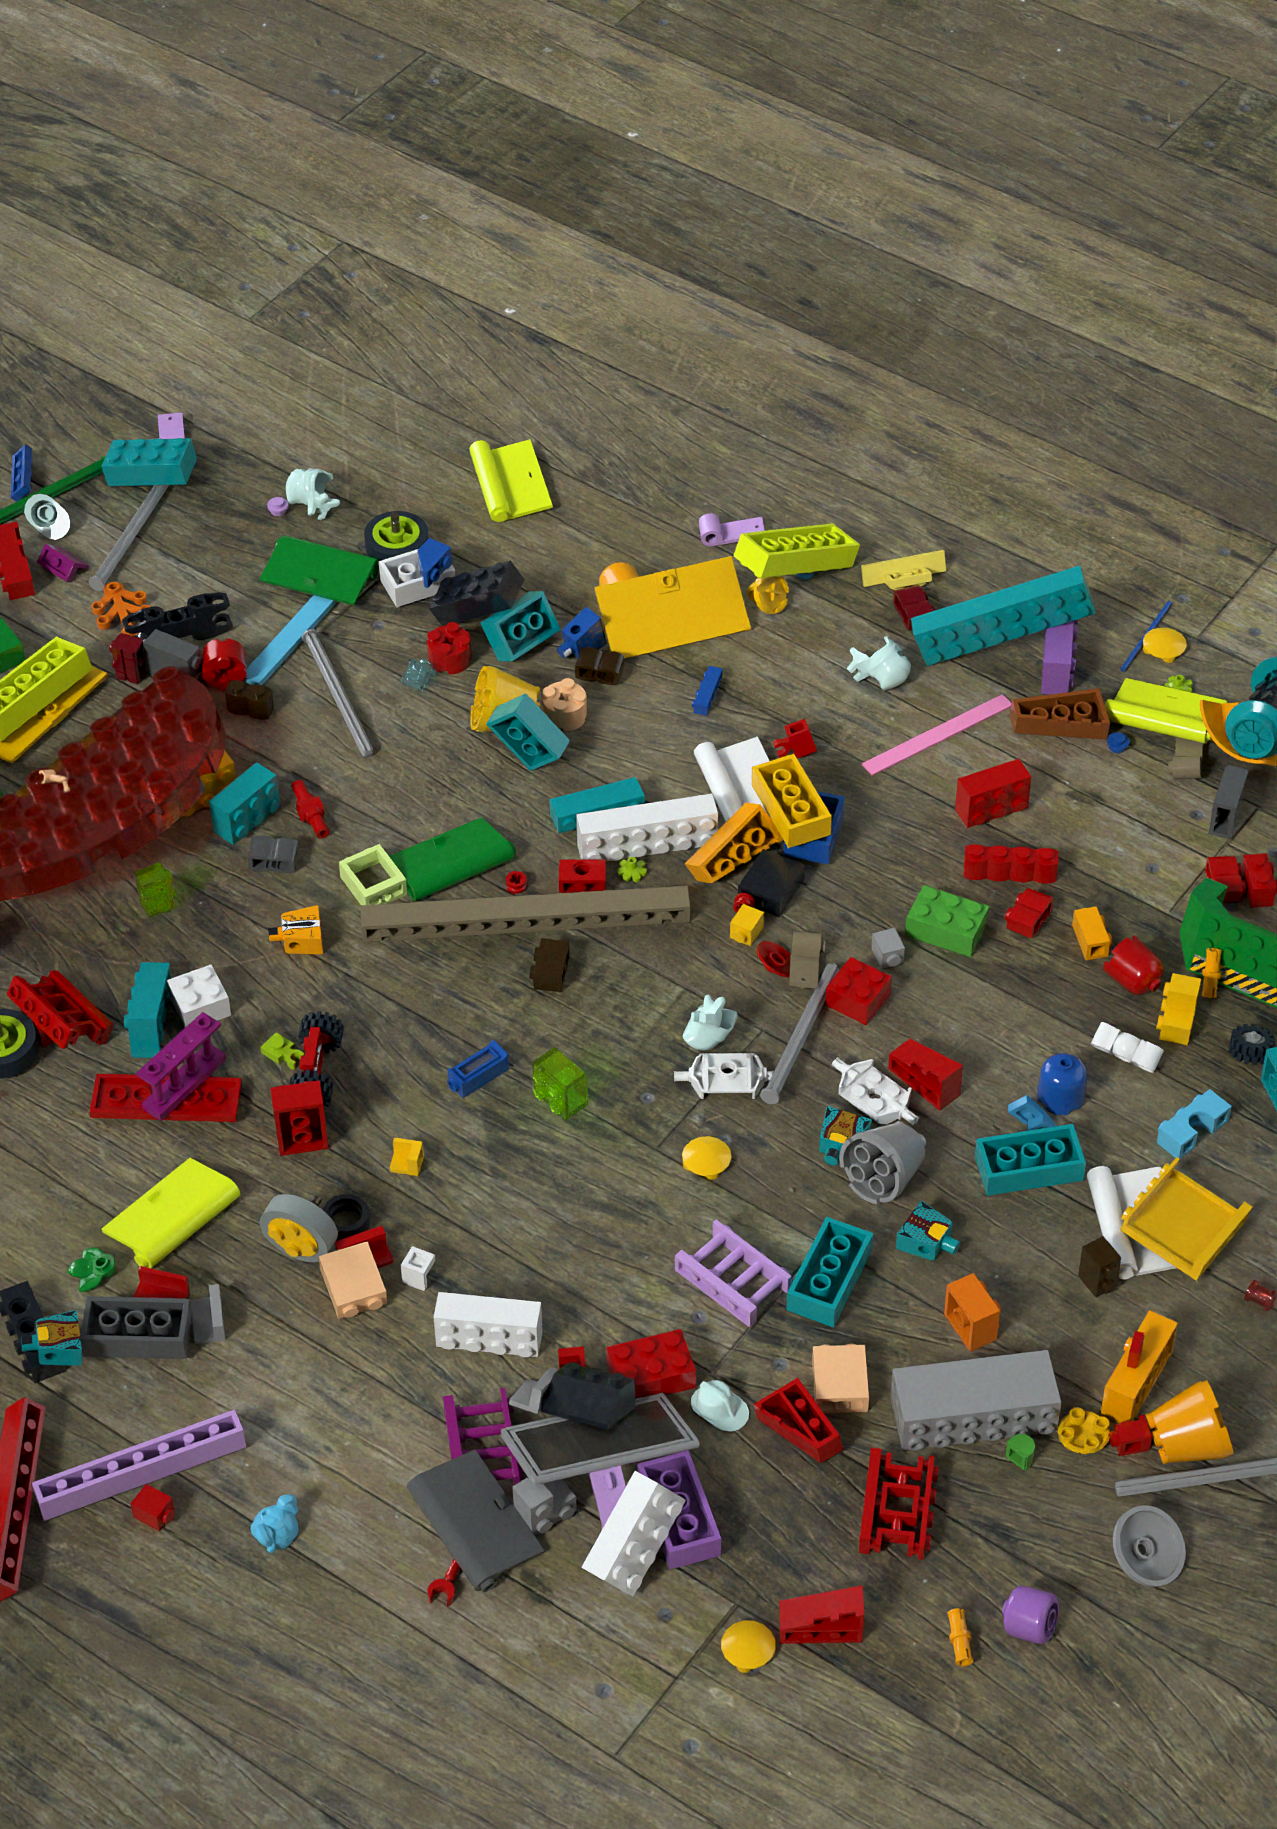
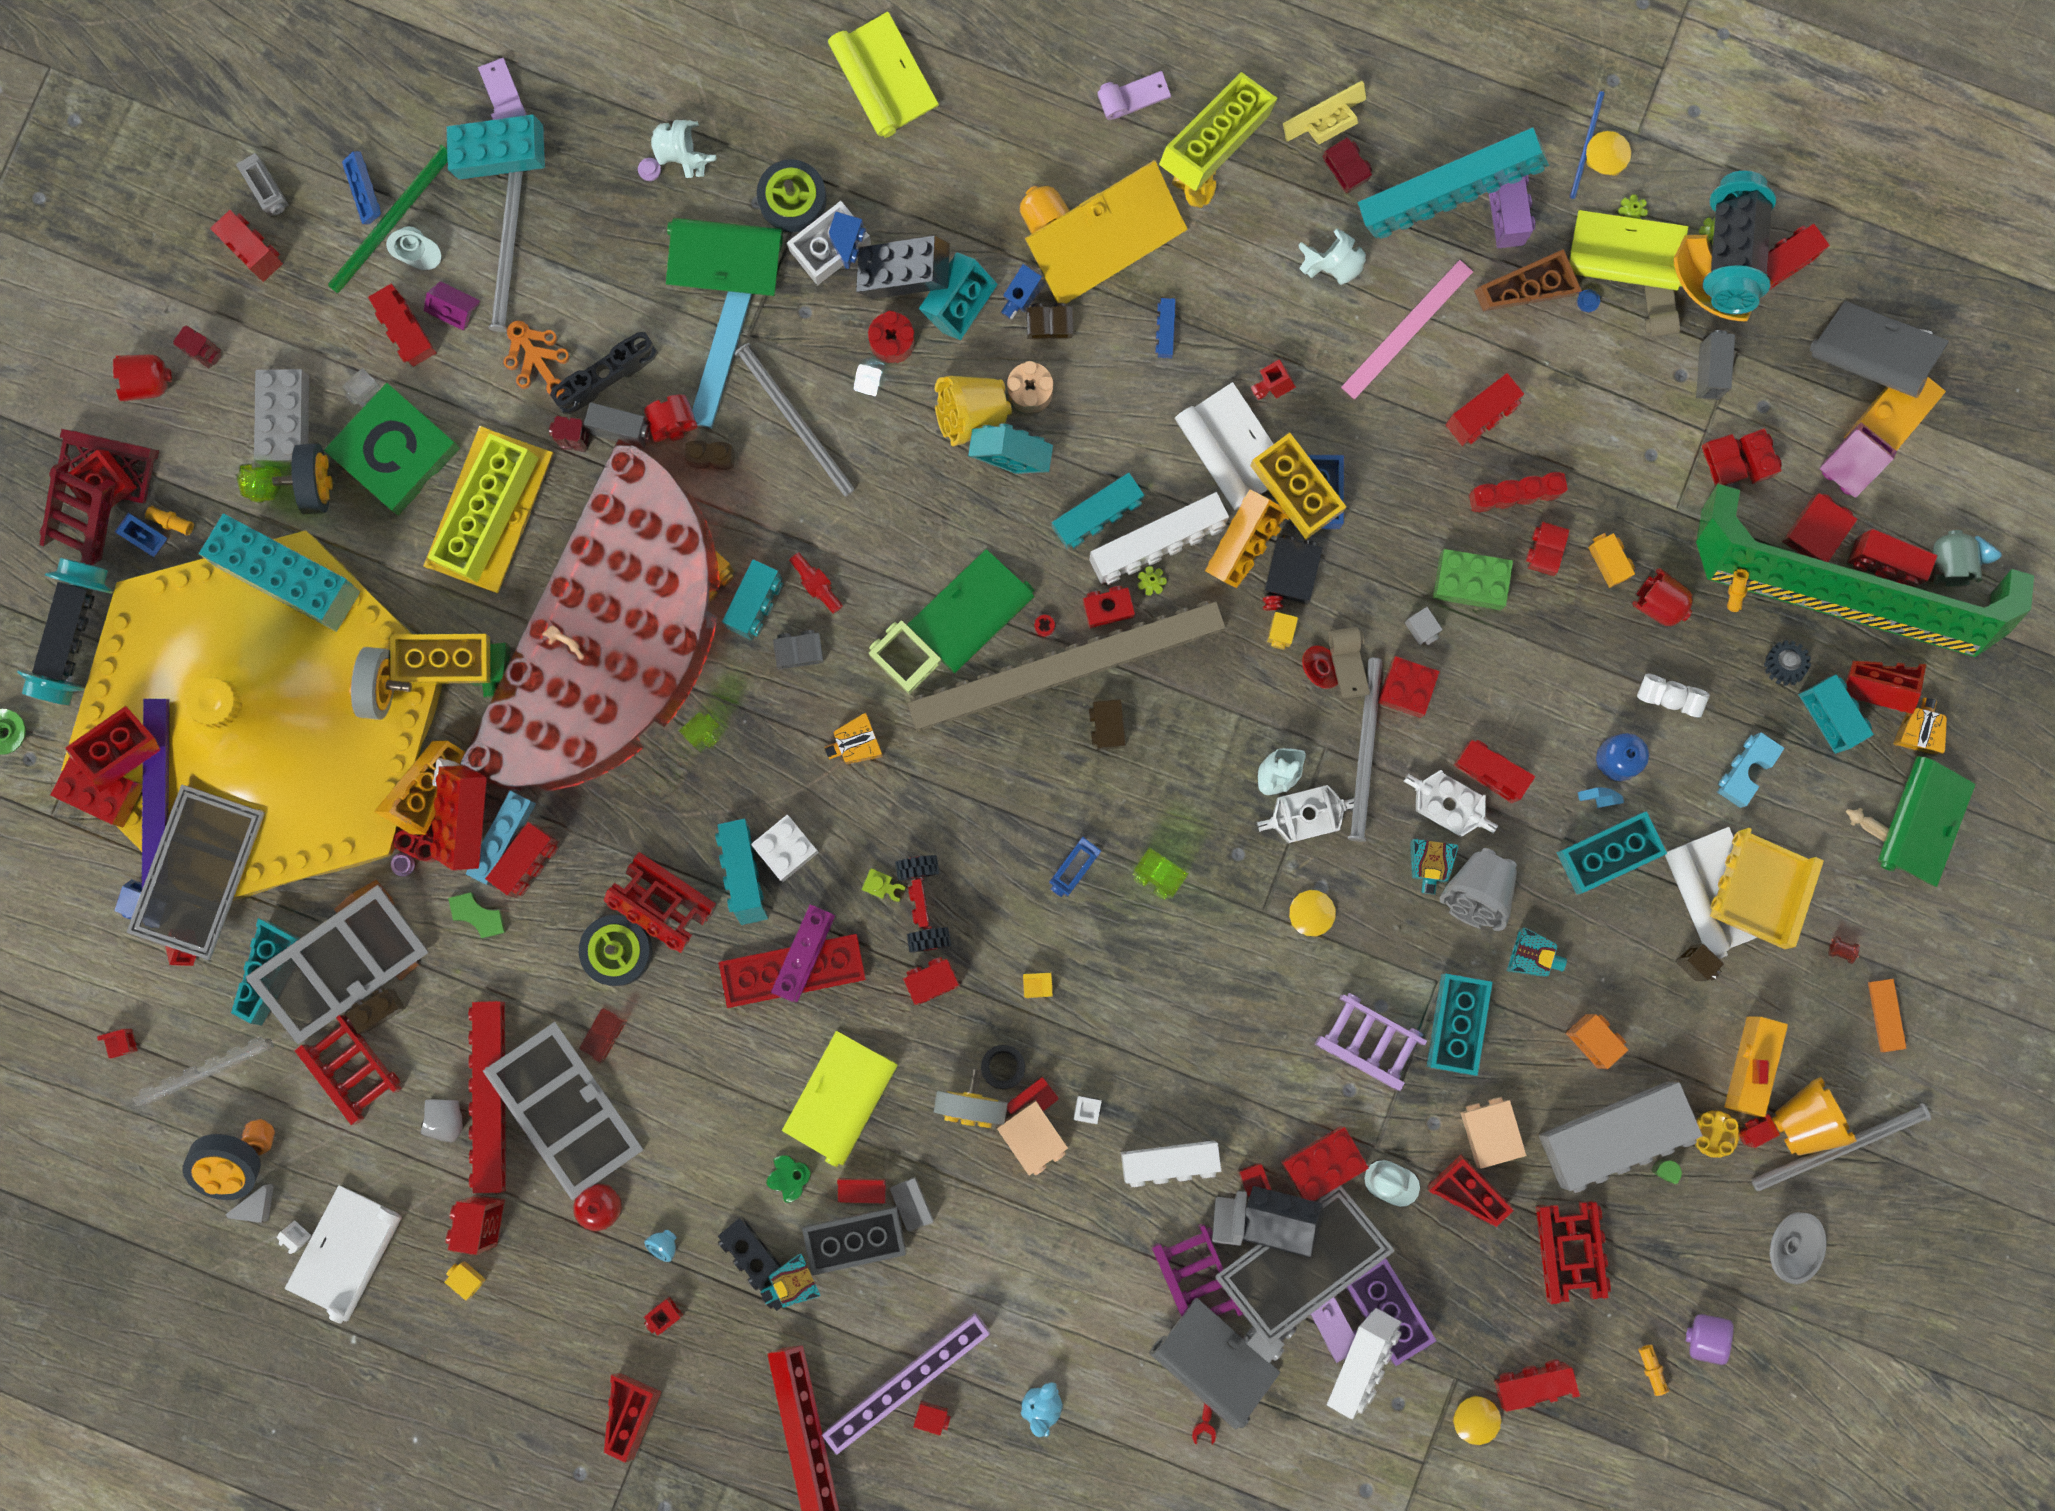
camera: 15 degrees left, 35 degrees up
(1178, 1008) = (1713, 641): yellow brick -> none

